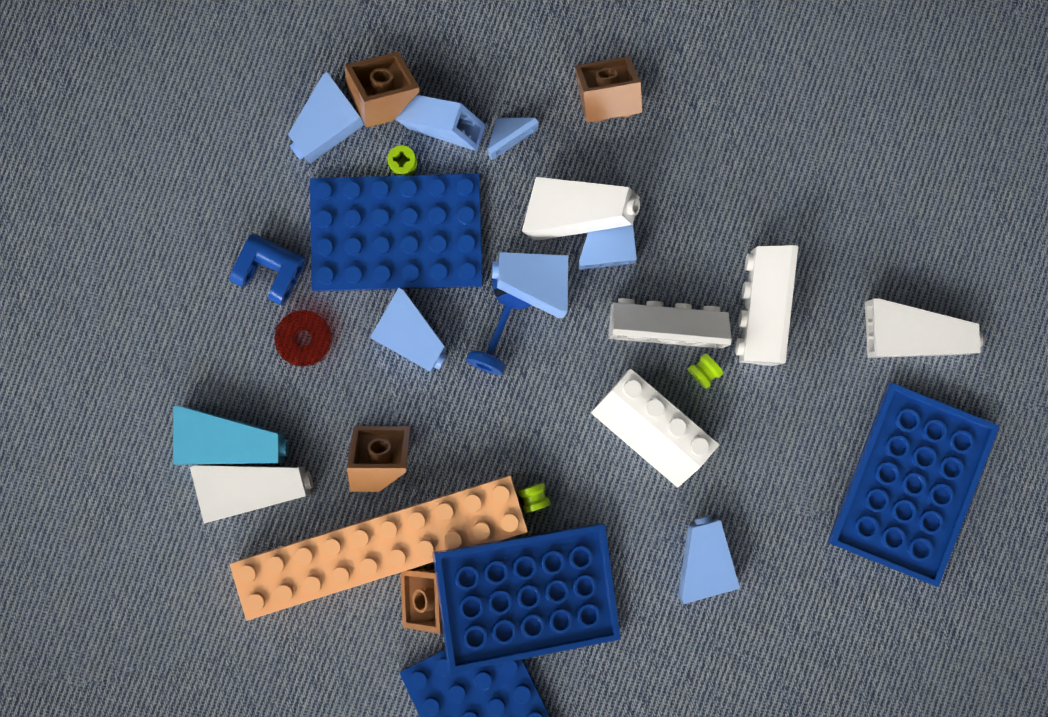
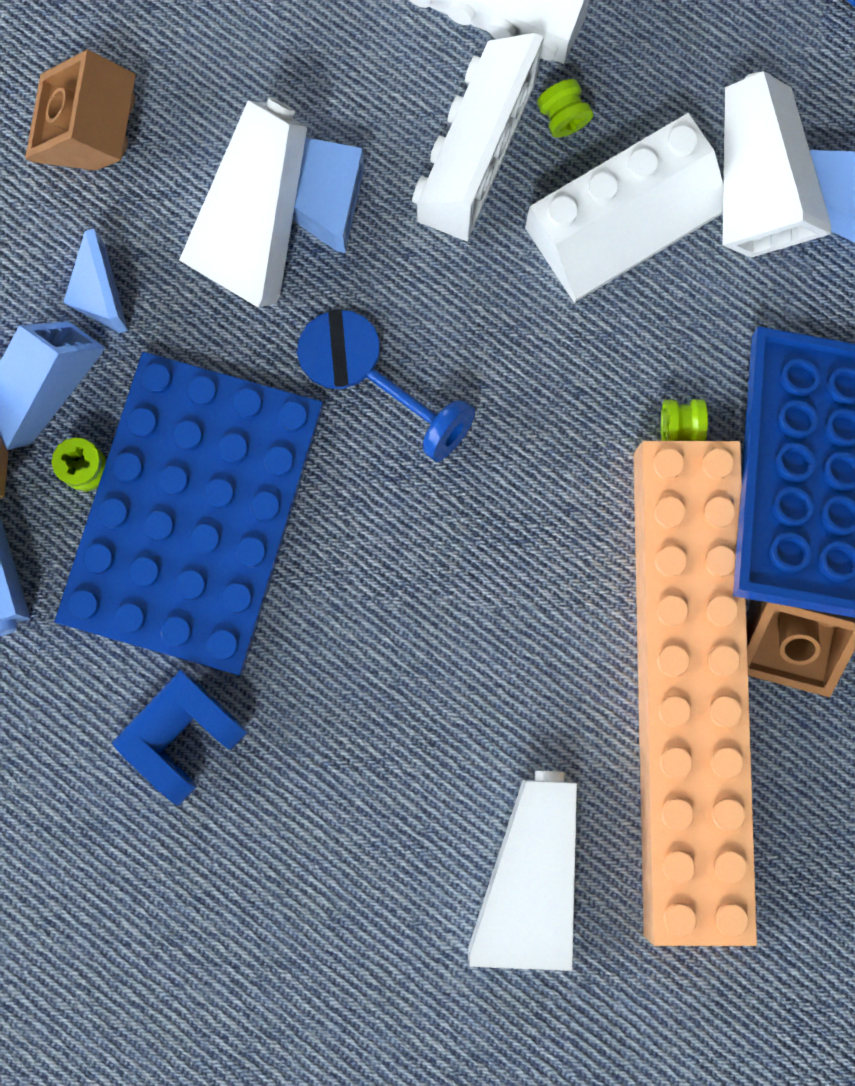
camera: 75 degrees left, 5 degrees down
(215, 439) = (438, 905): medium azure slope -> none
(287, 333) = (284, 709): clear red tile -> none
(377, 456) = (546, 647): medium nougat slope -> none
(409, 334) = (363, 536): light blue slope -> none
(534, 279) = (342, 313): light blue slope -> none
(703, 502) = (768, 170): none -> white slope

